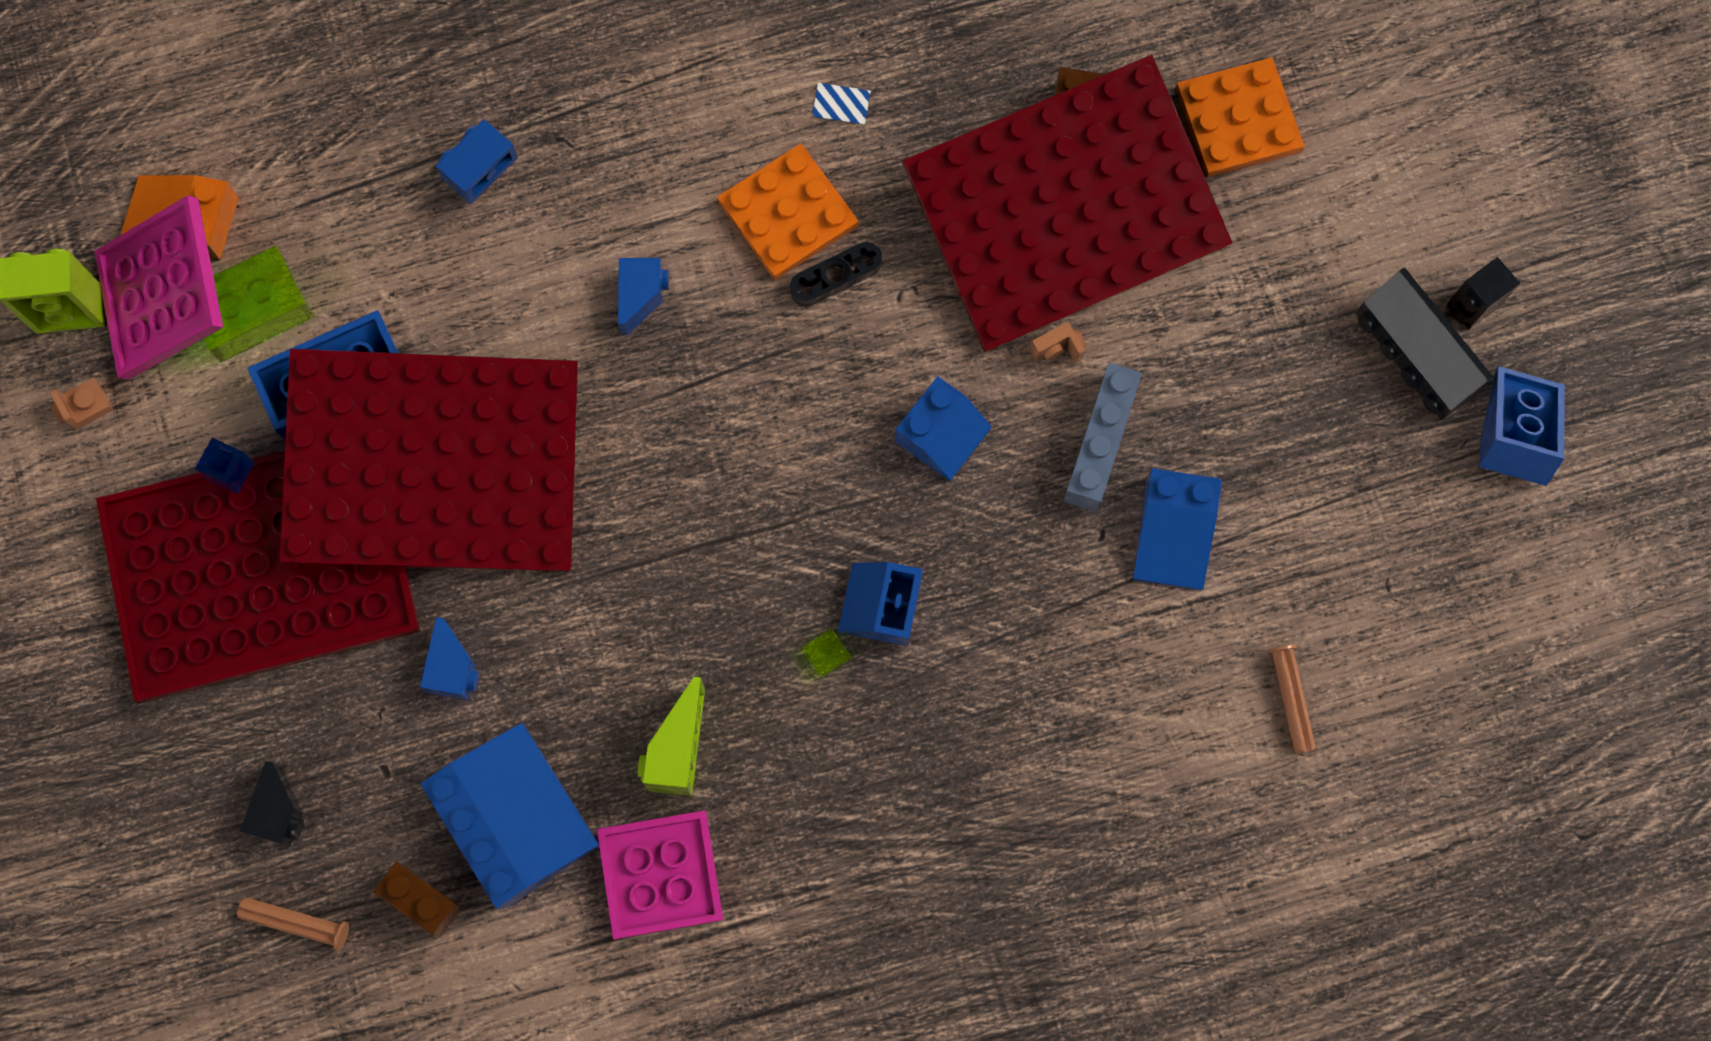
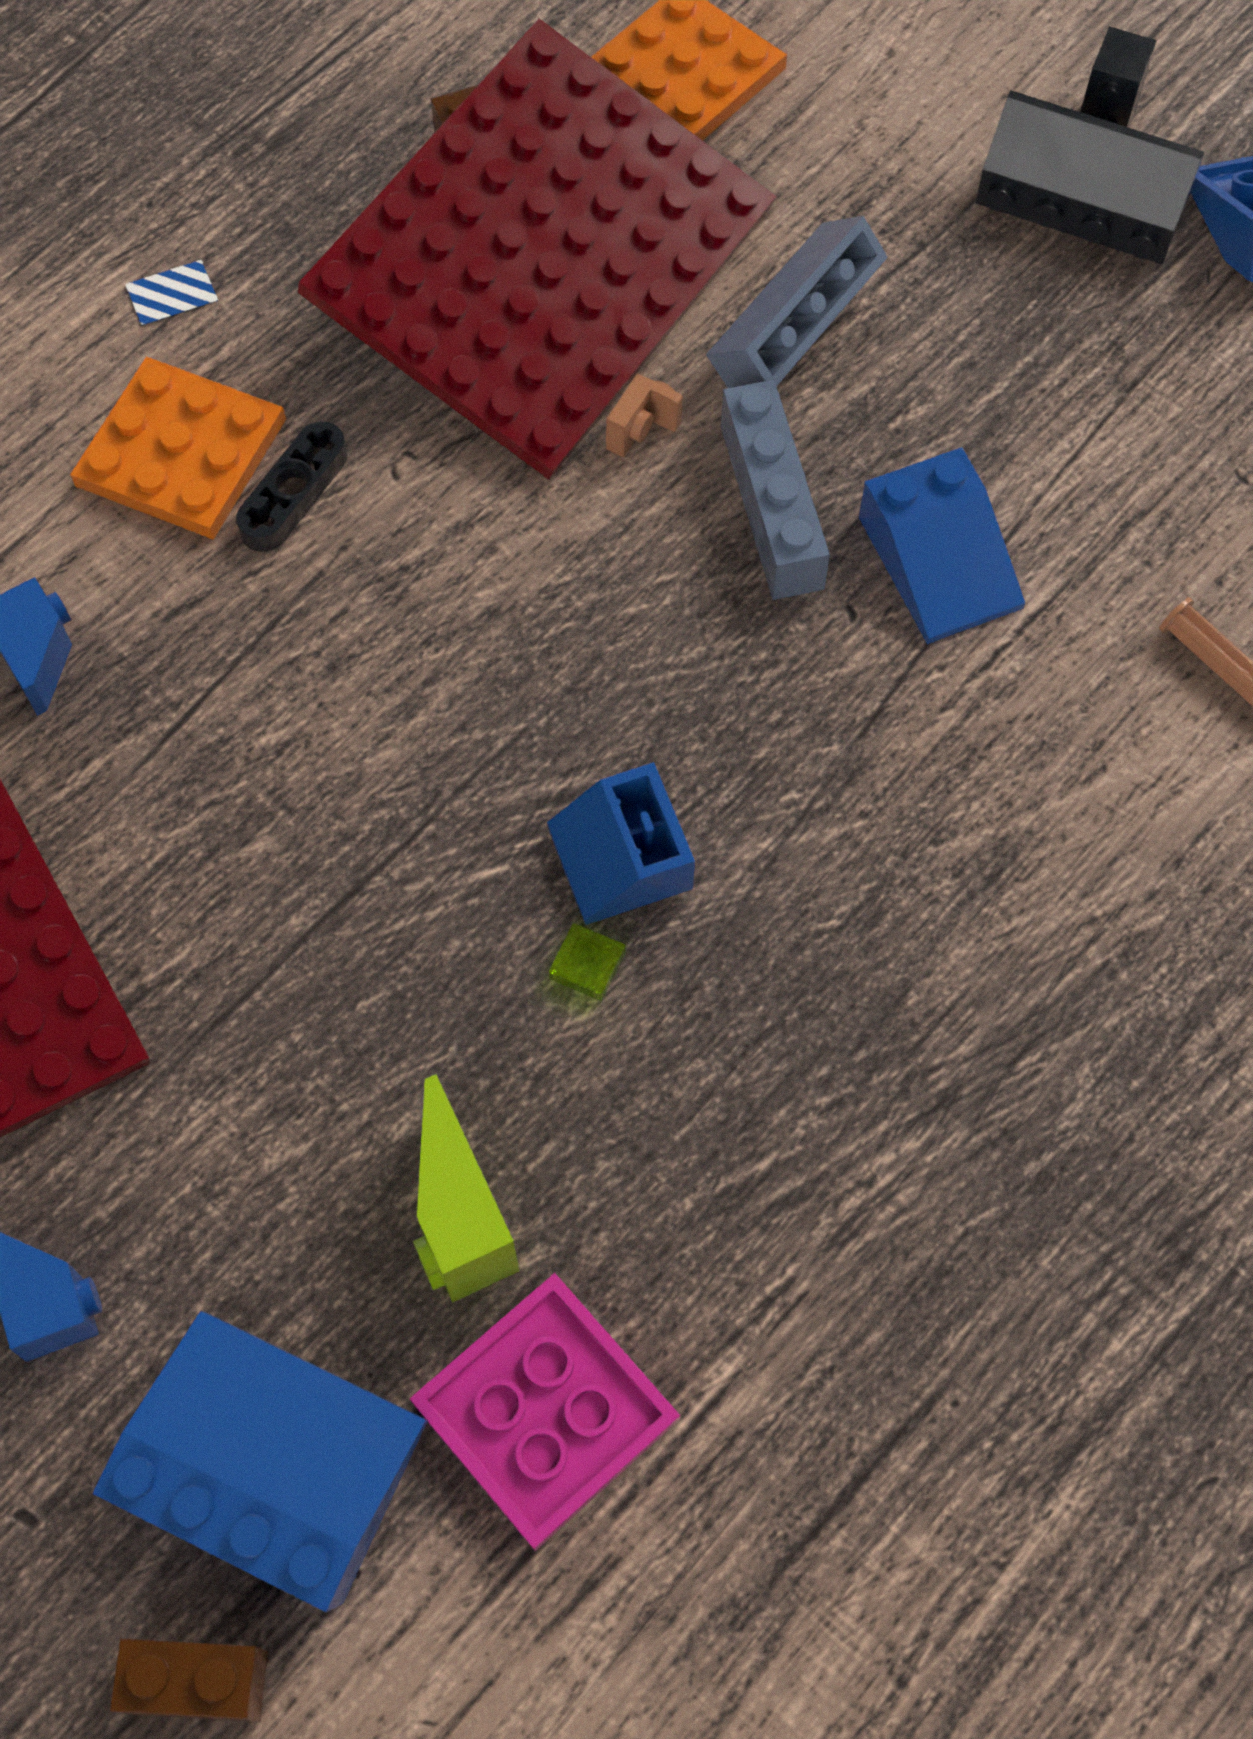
camera: 30 degrees left, 10 degrees down
(942, 429) = (557, 590): blue slope -> none
(1193, 328) = (798, 303): none -> sand blue brick

